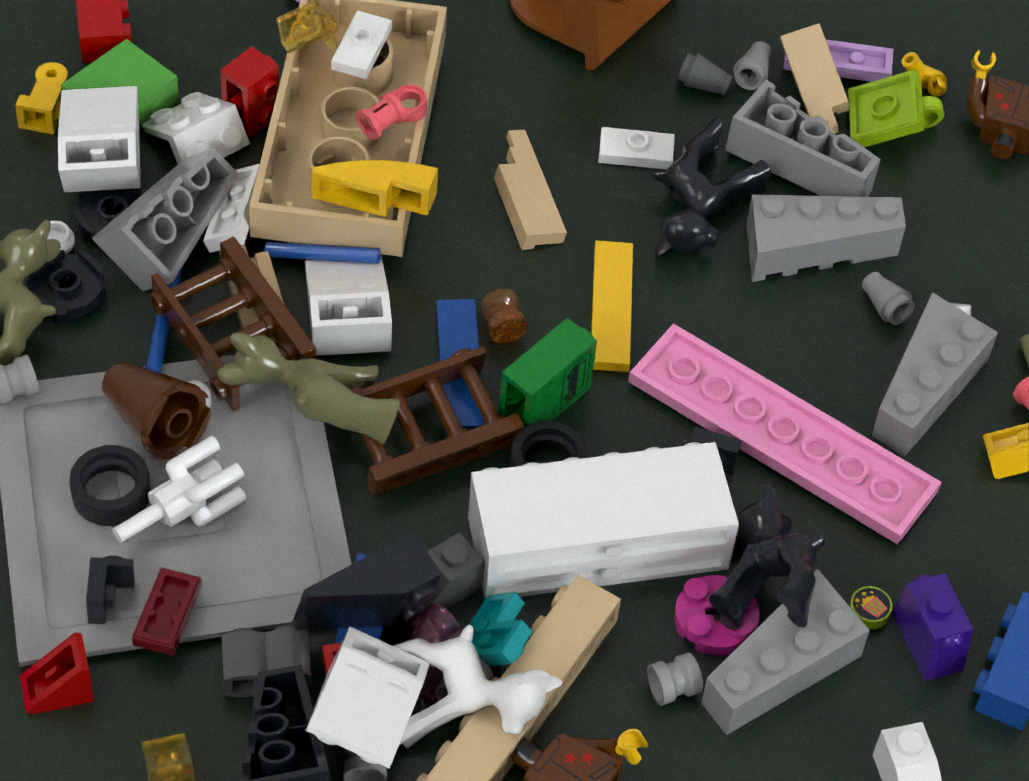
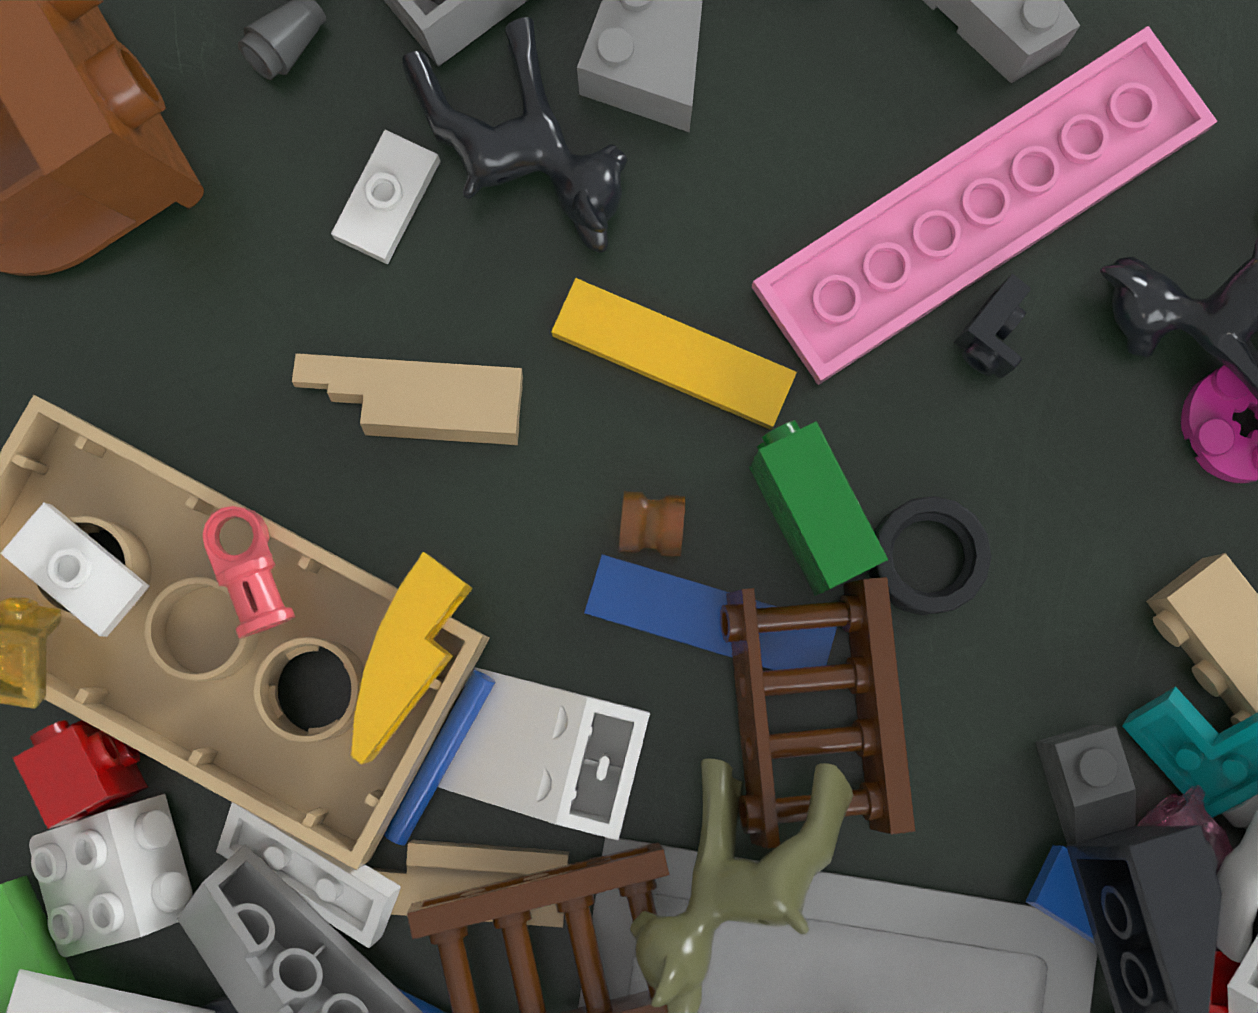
camera: 65 degrees left, 30 degrees up
(602, 519) = (1090, 527): white brick -> none

